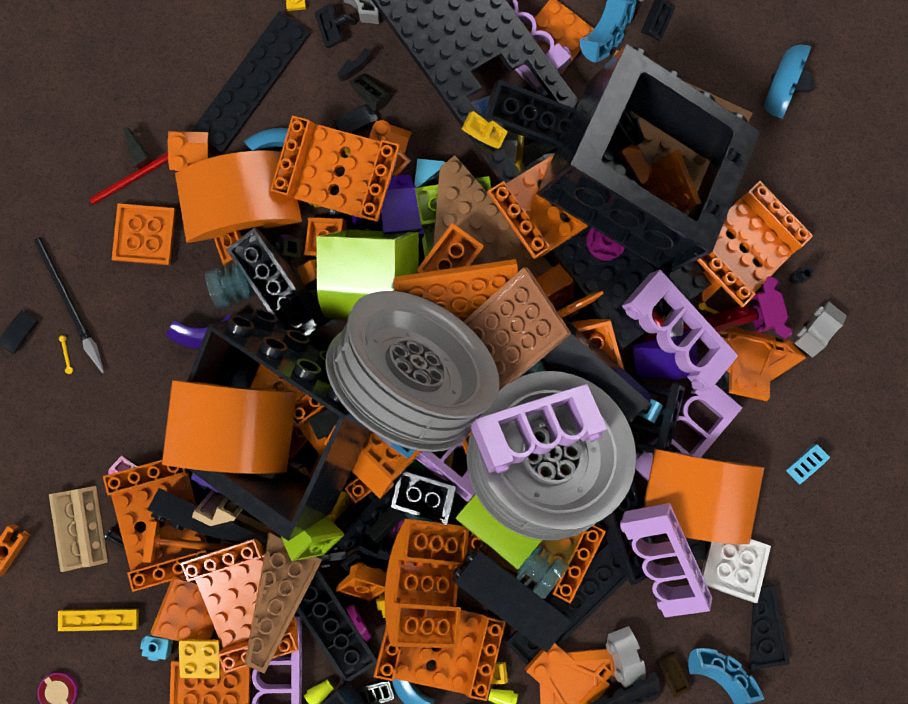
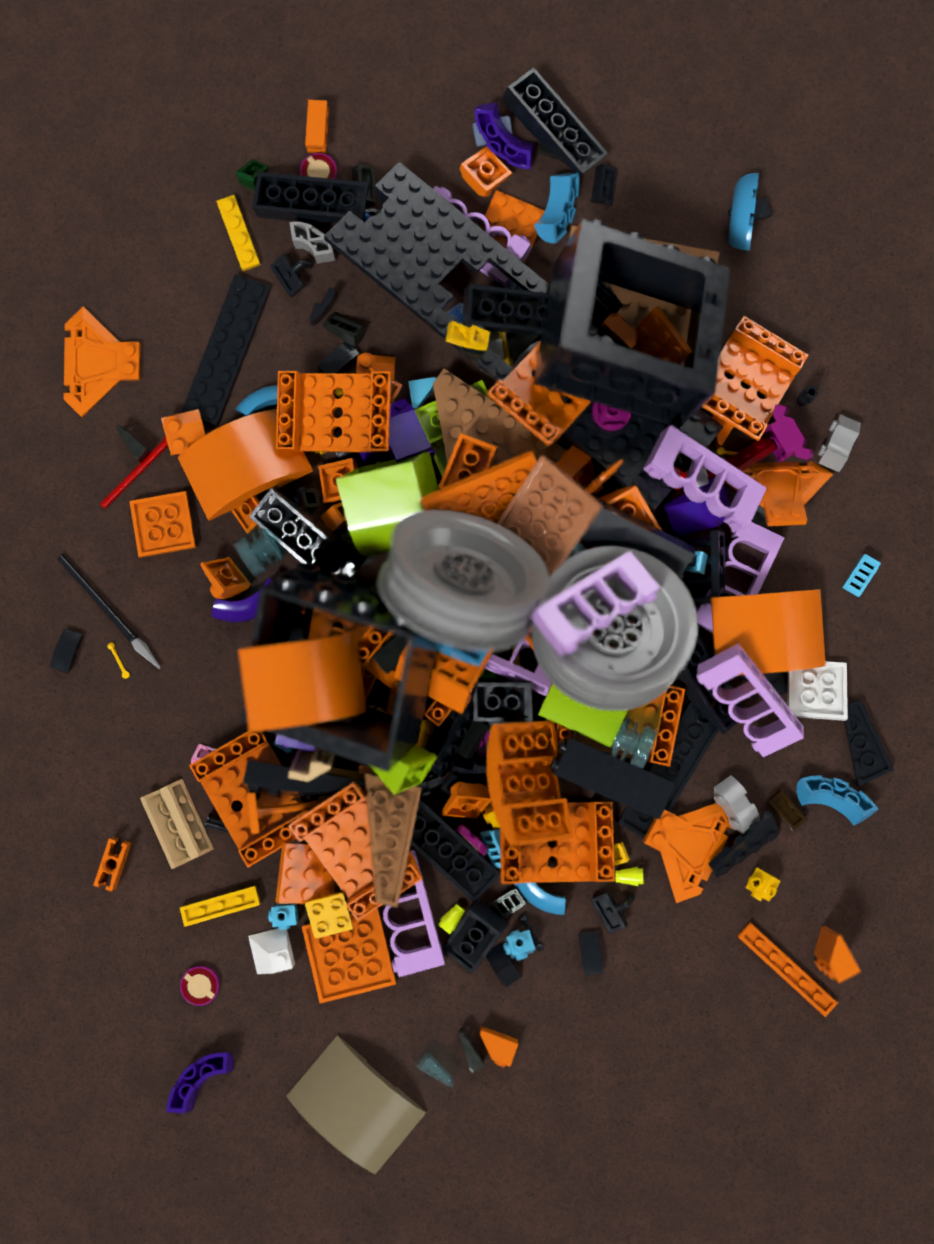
camera: 10 degrees left, 0 degrees up
(122, 60) = (95, 361): none -> orange plate
(136, 678) = (272, 951): none -> white slope
(188, 302) = (225, 578): none -> orange slope
(377, 628) = (491, 840): none -> medium azure slope

